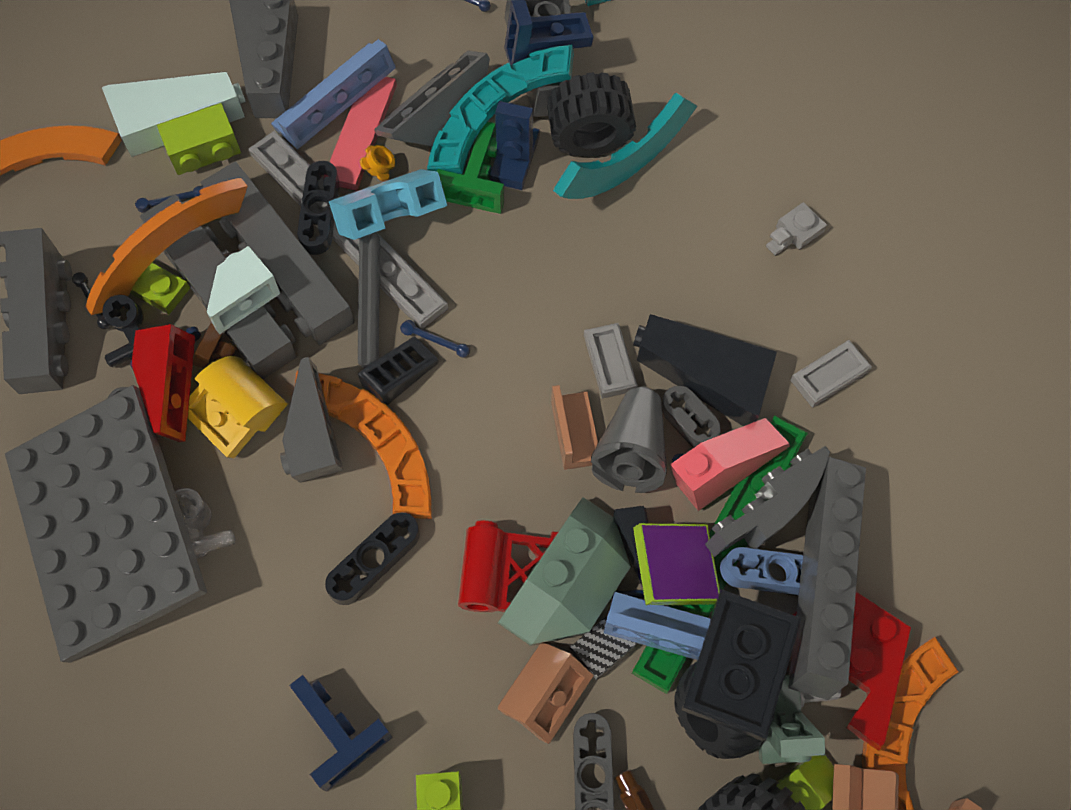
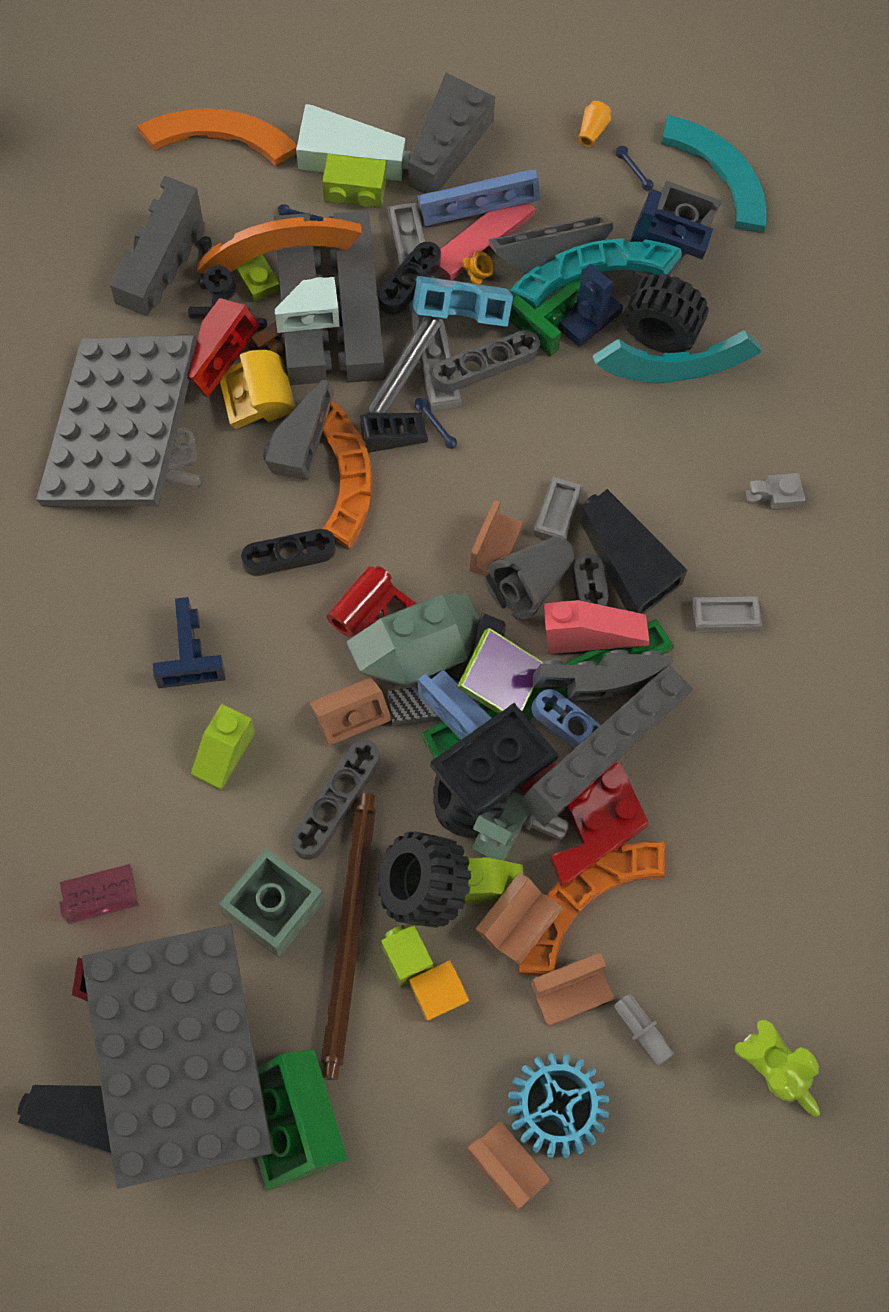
camera: 30 degrees right, 0 degrees up
(441, 248) = (487, 363): none -> dark grey beam

